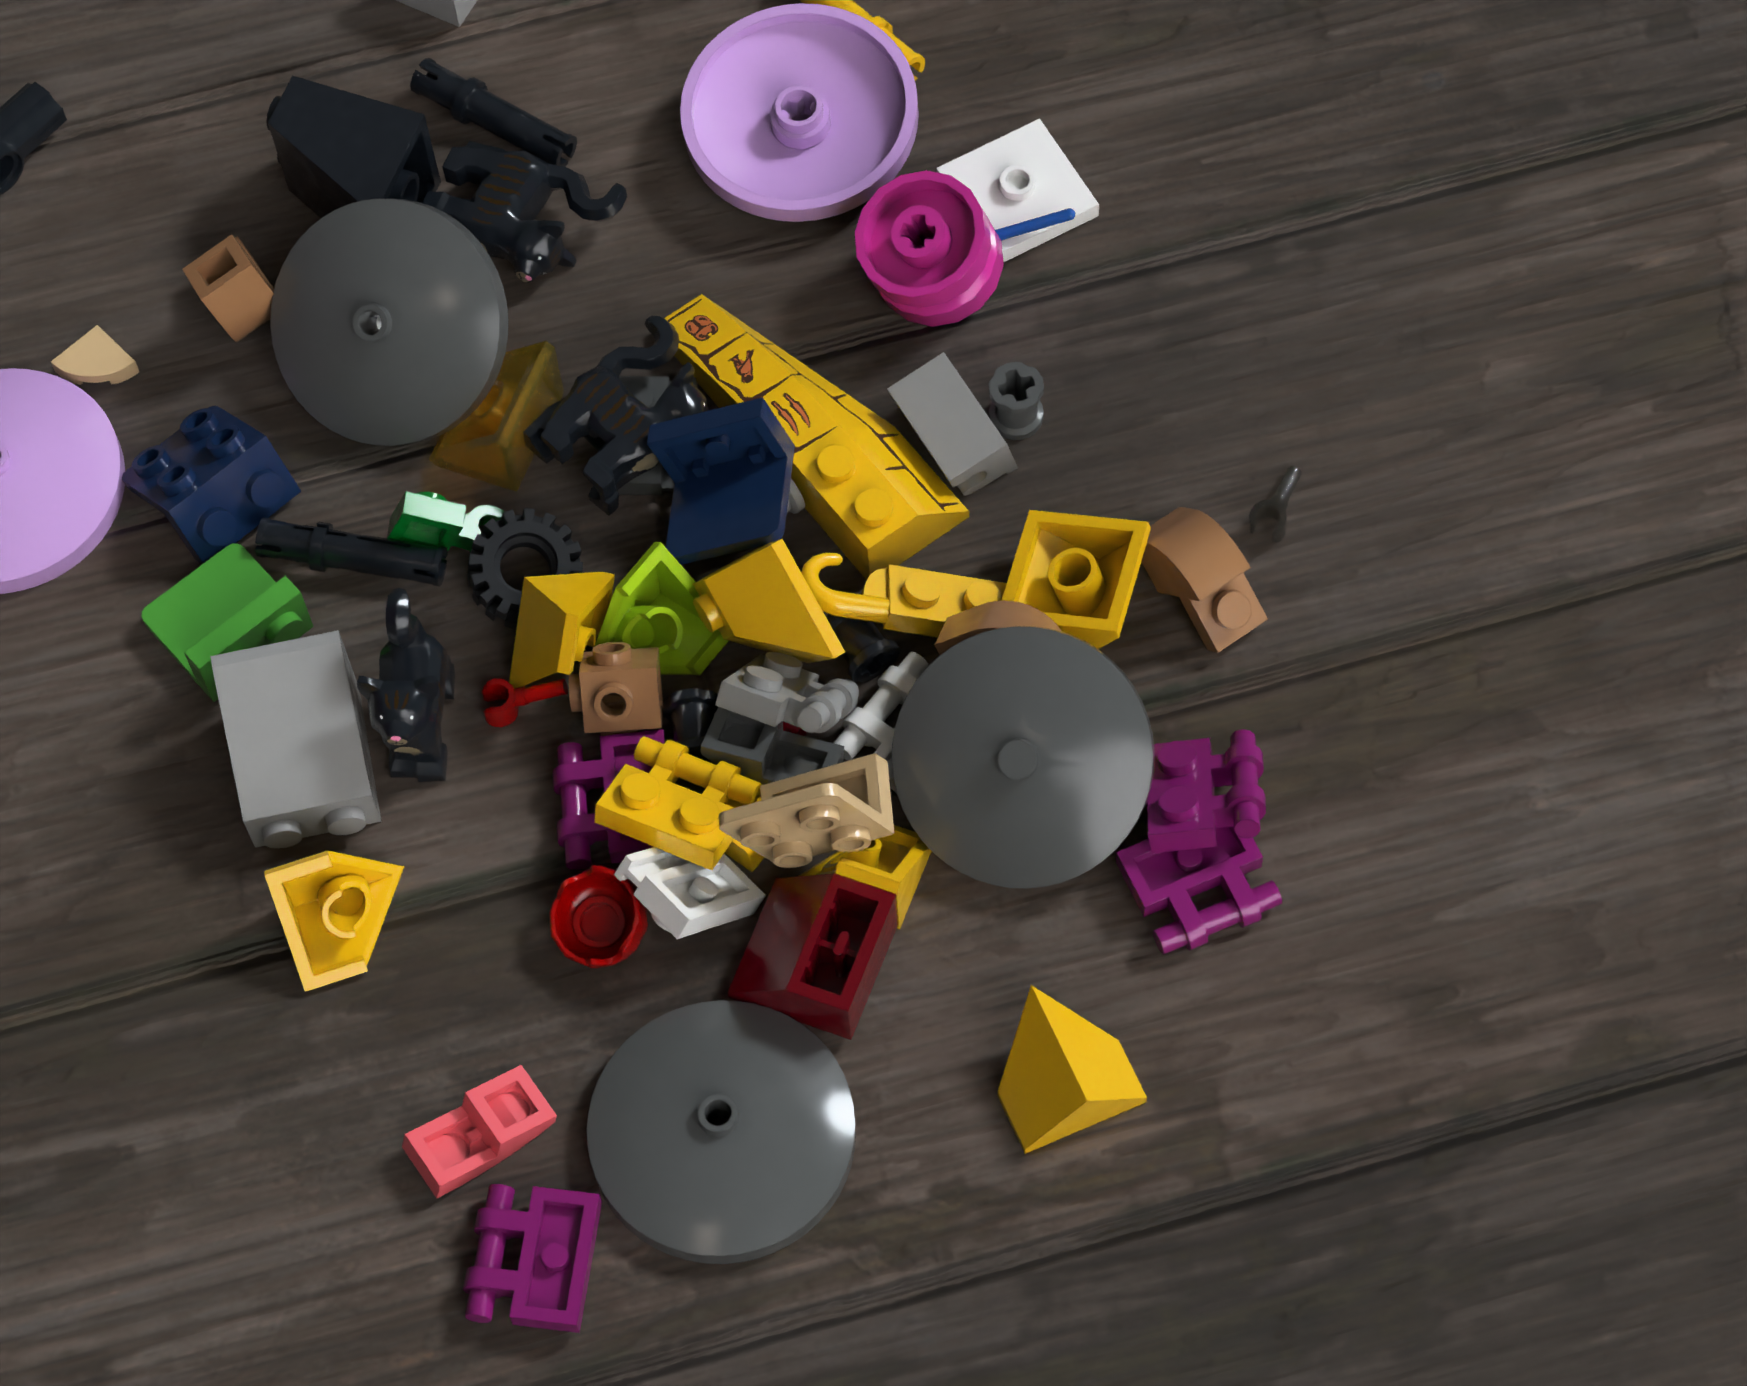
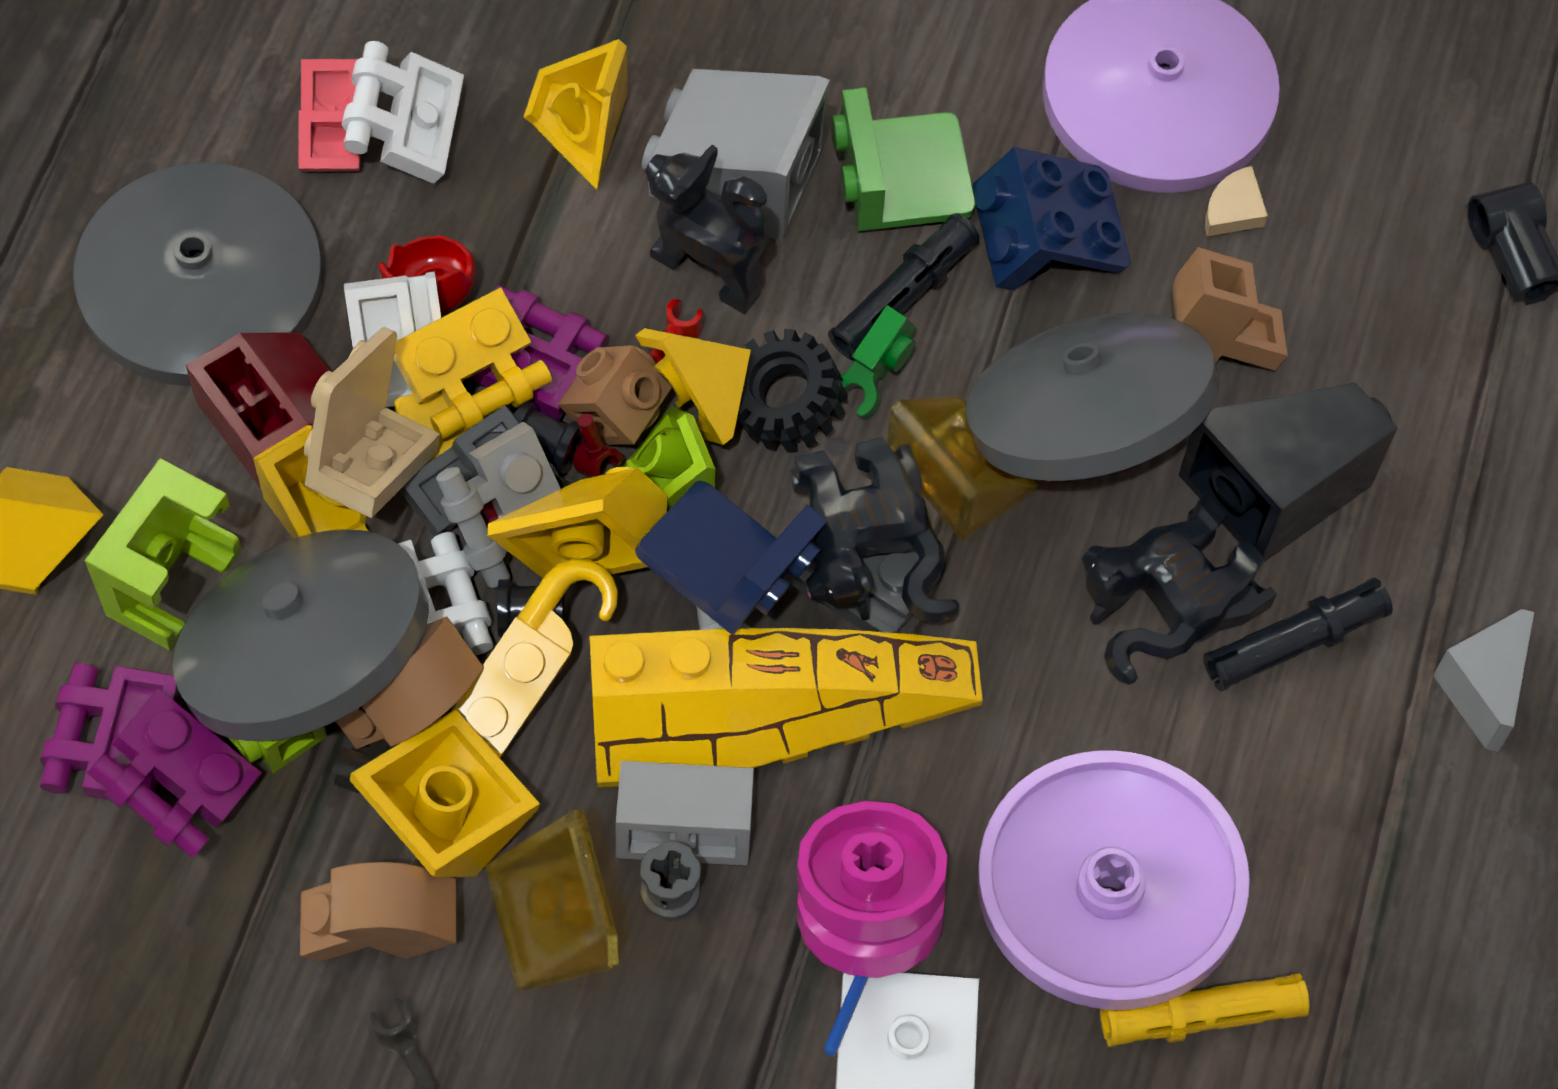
camera: 115 degrees right, 0 degrees up
(434, 1040) = (421, 113): none -> white plate
(553, 1260) = (192, 108): magenta plate -> none
(684, 676) = (593, 450): none -> dark red hand
(1031, 940) = (147, 537): none -> lime panel
(1094, 456) = (554, 906): none -> clear yellow slope

